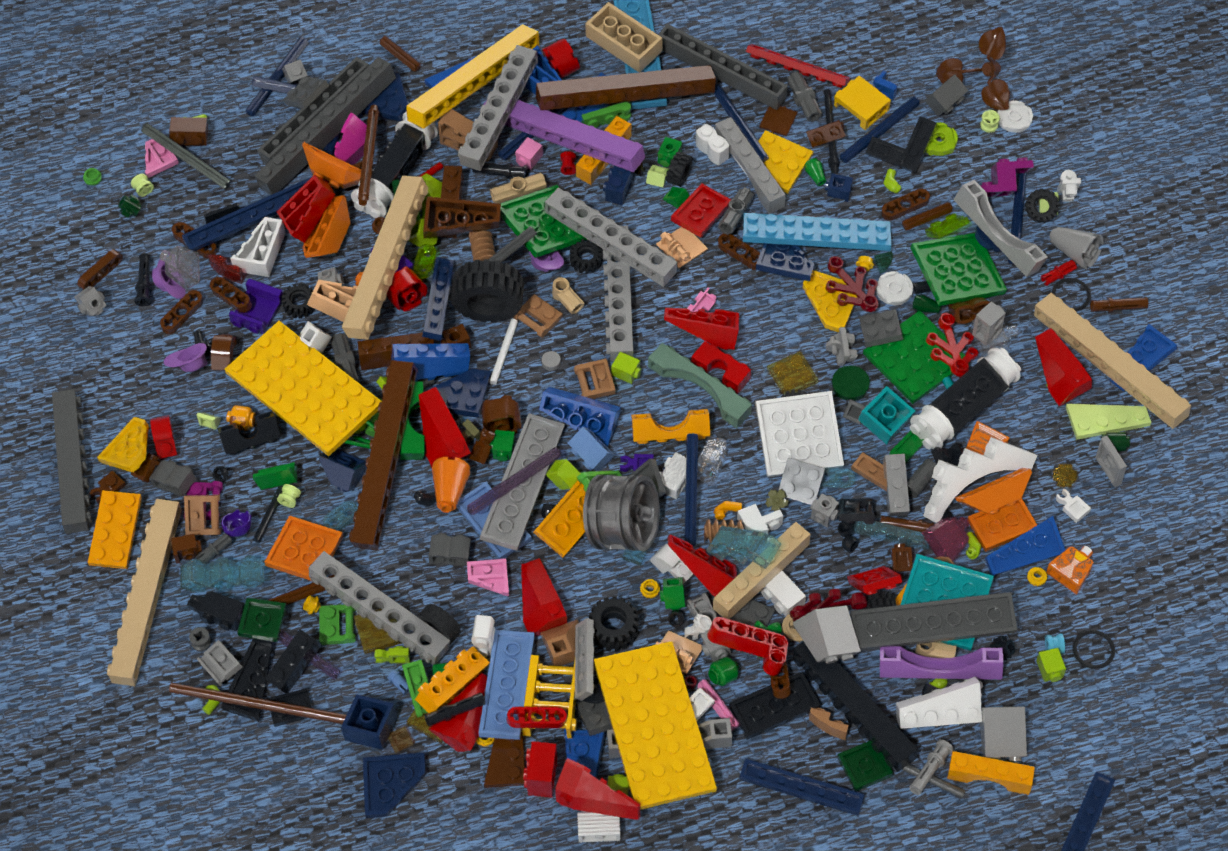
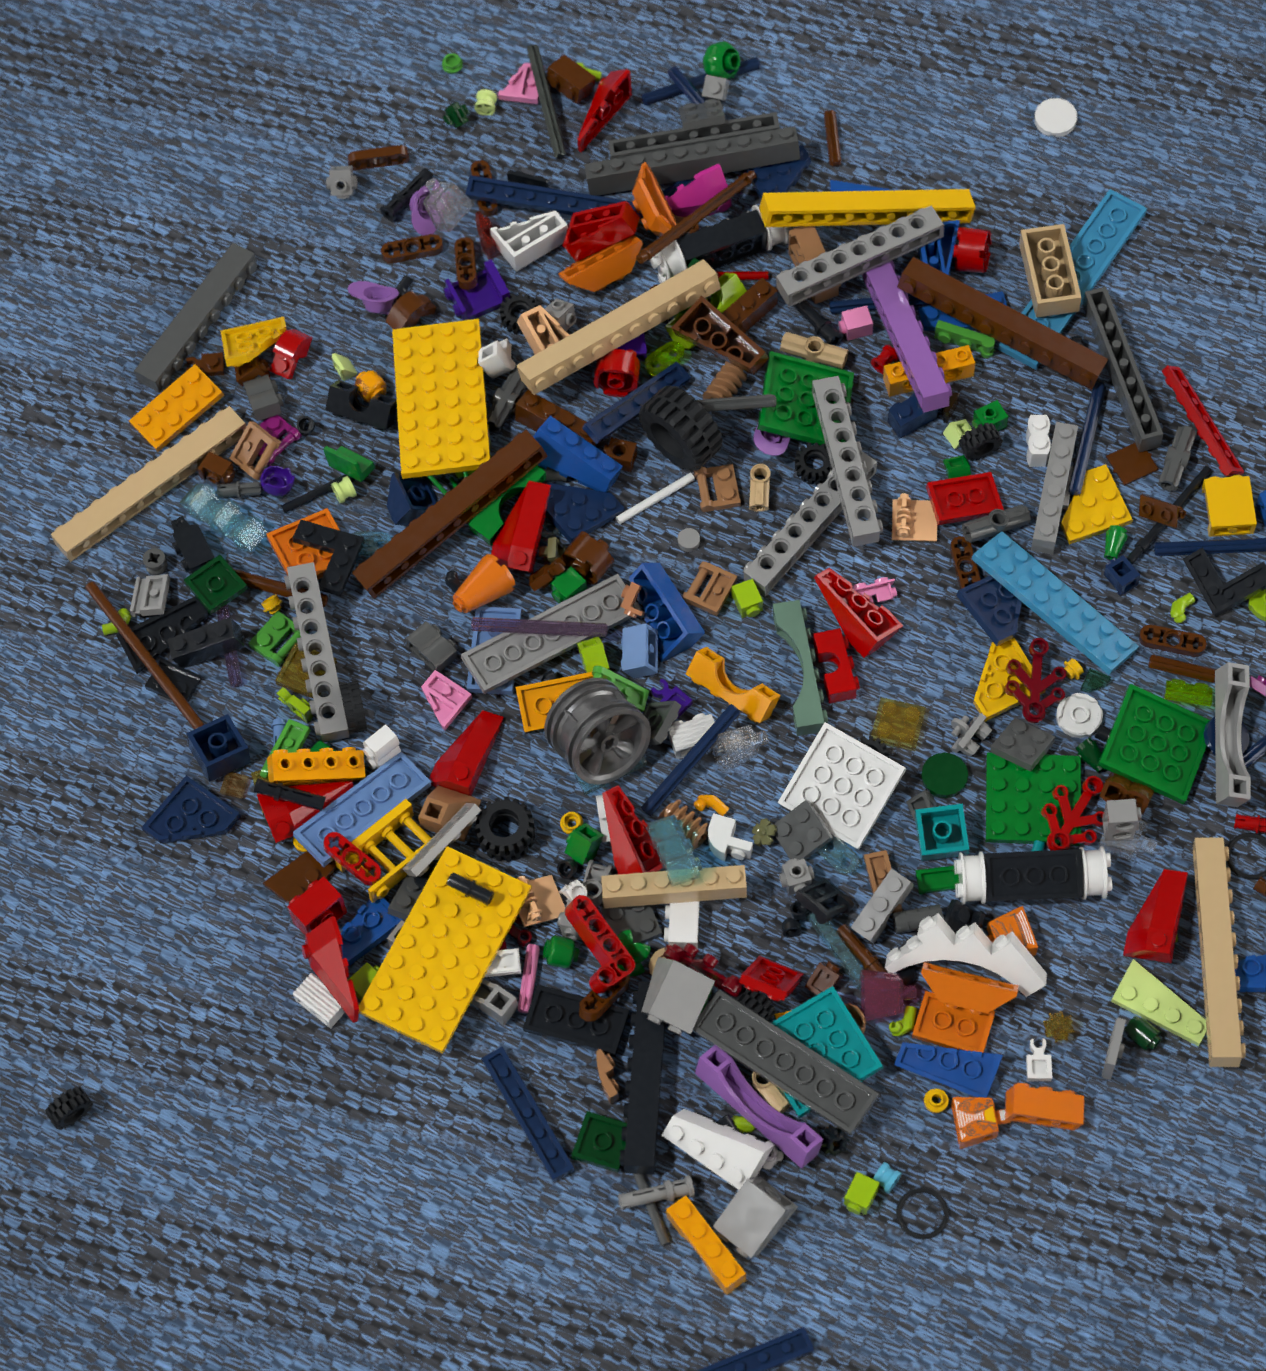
camera: 45 degrees right, 5 degrees up
(226, 126) = (608, 100): none -> red wedge
(280, 52) = (719, 58): none -> green plant
(324, 529) = (345, 552): none -> black plate
(554, 418) = (630, 595): none -> nougat bracket
(638, 671) = (470, 888): none -> black axle
(1105, 527) = (1044, 1107): none -> orange brick

